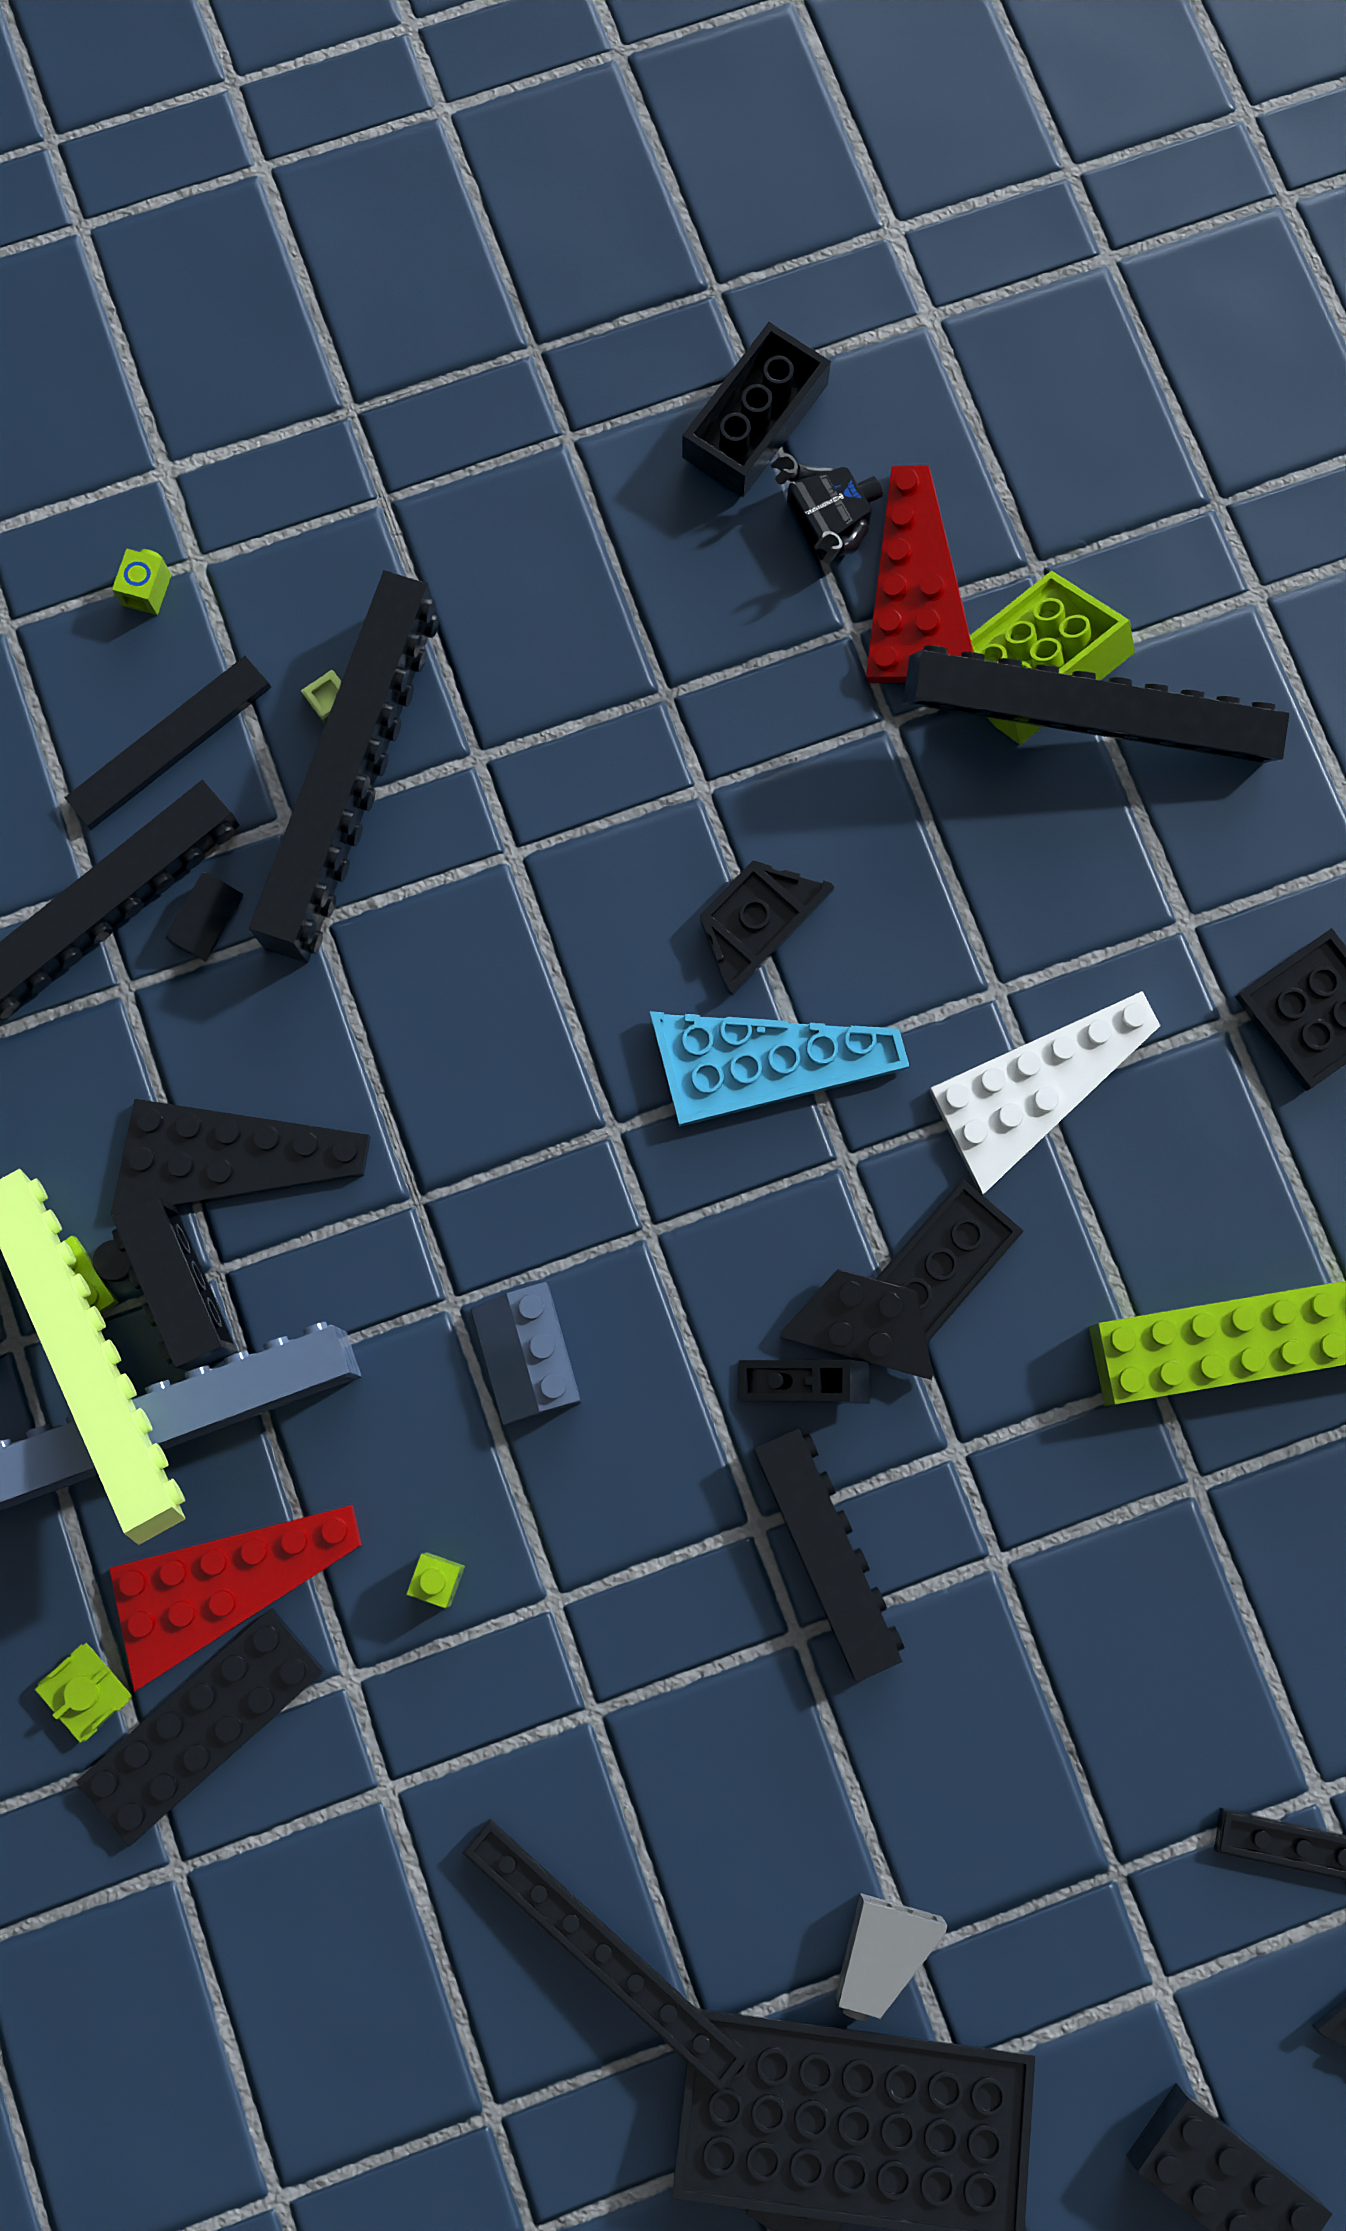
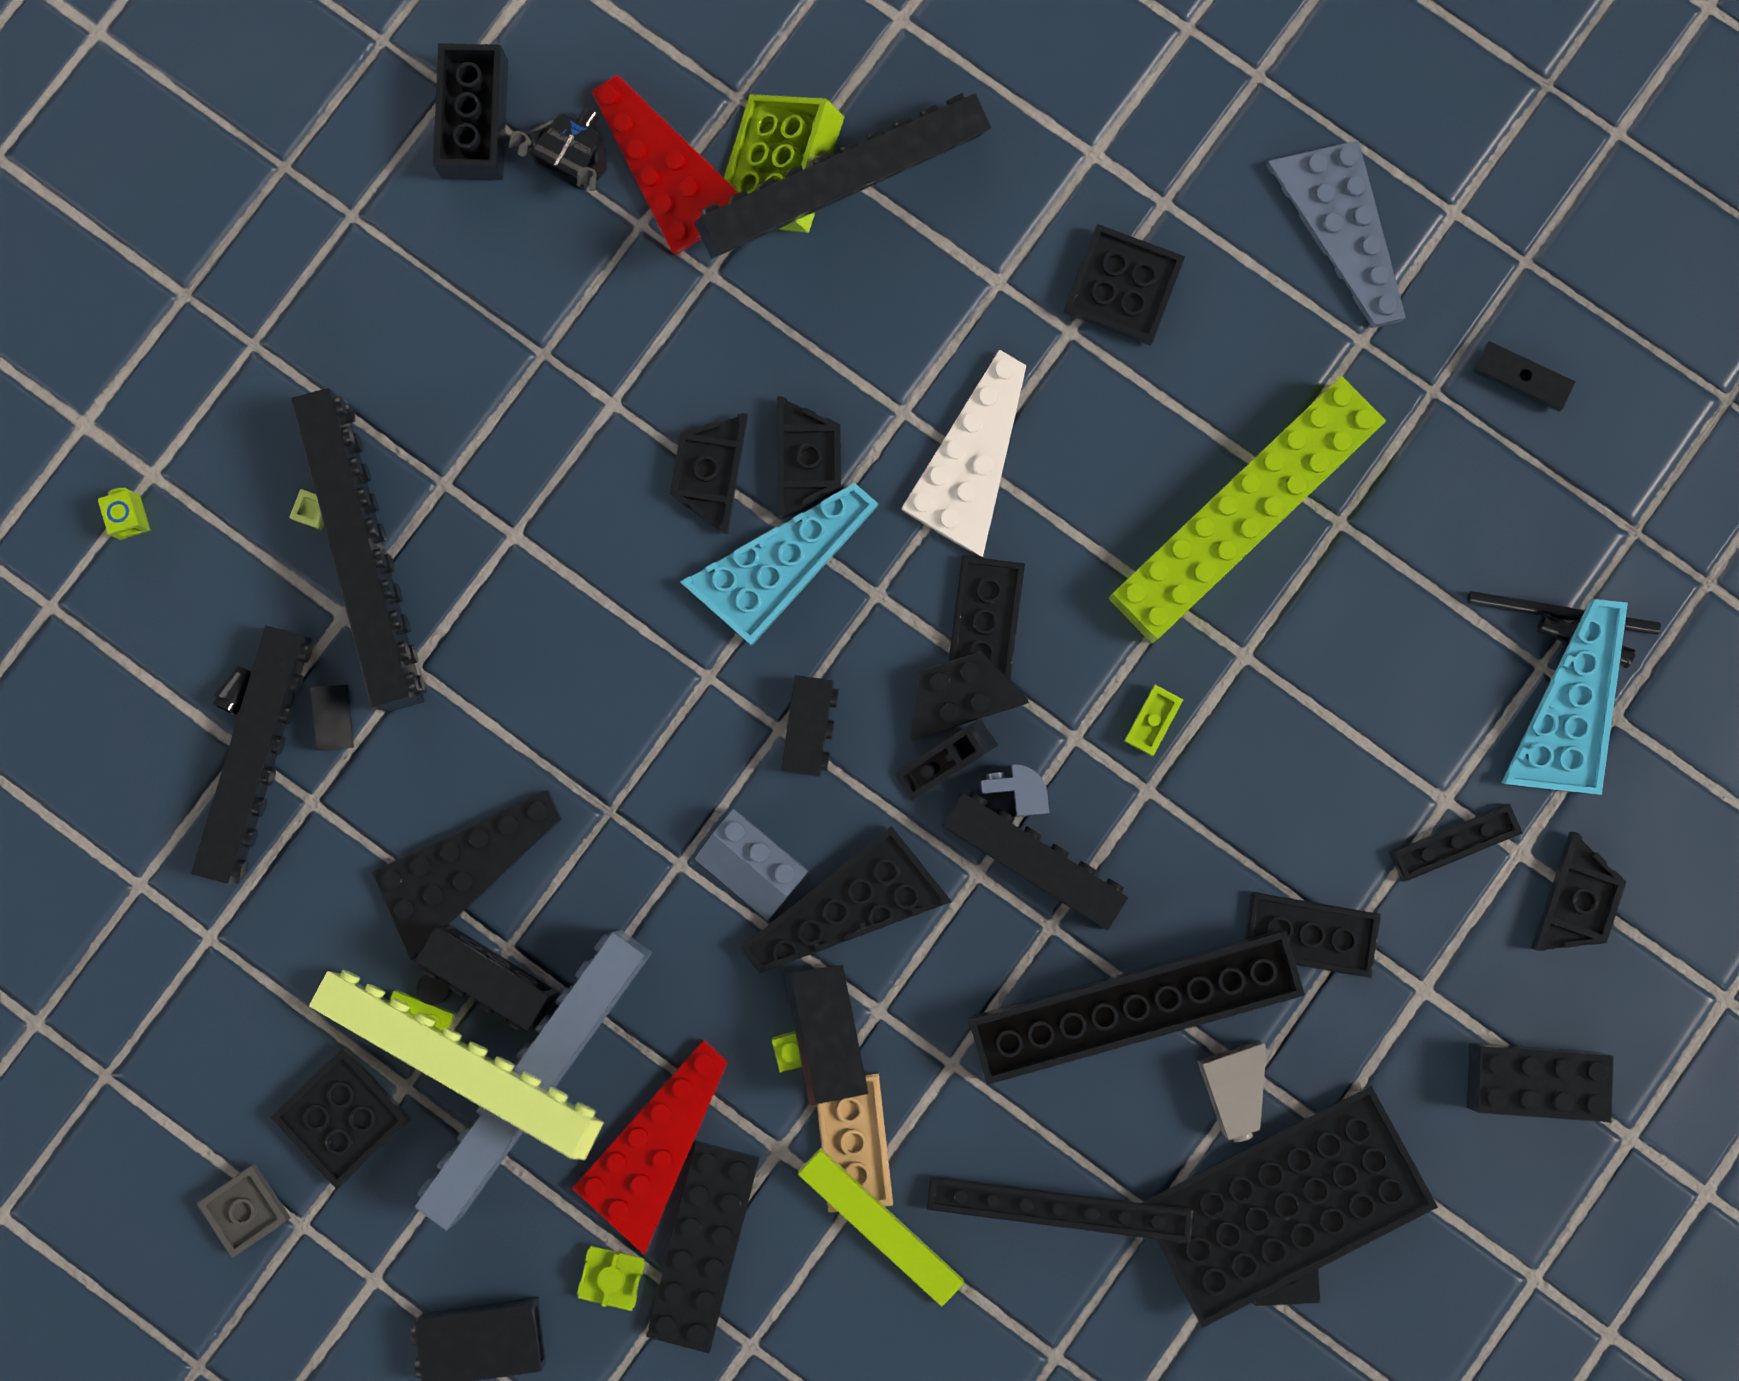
camera: 30 degrees left, 5 degrees up
(122, 825) = (232, 692): none -> black cone
(168, 742) = (221, 614): black tile -> none
(401, 1838) = (881, 1227): none -> lime tile
(433, 1725) = (856, 1139): none -> tan tile
(482, 1588) = (826, 1034): none -> black tile
(618, 1466) = (863, 895): none -> black wing
(683, 1249) = (809, 726): none -> black brick
(835, 1787) = (1136, 1006): none -> black brick
(865, 970) = (805, 457): none -> black wing
(870, 1469) = (1027, 787): none -> sand blue brick
(1053, 1488) = (1153, 720): none -> lime plate
(1076, 1840) = (1318, 933): none -> black tile

